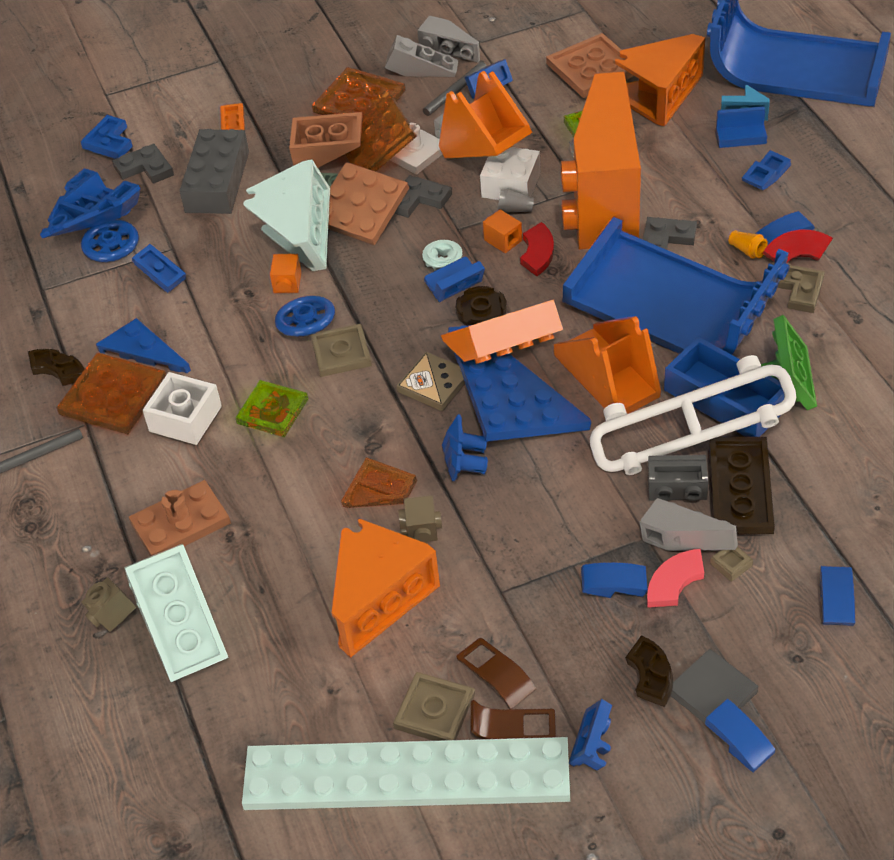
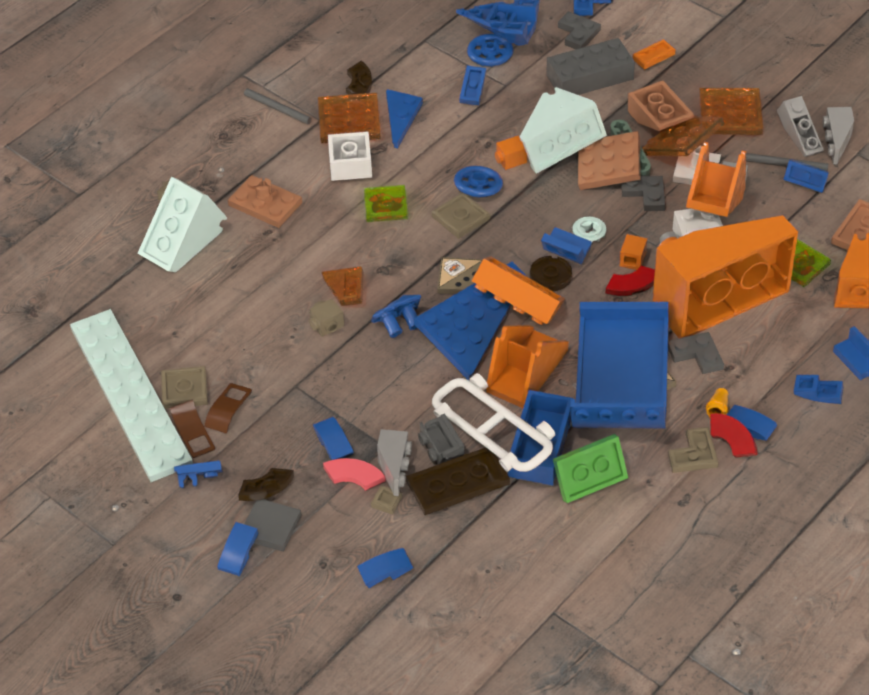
camera: 60 degrees right, 0 degrees up
(378, 582) = (250, 312): orange ladder -> none

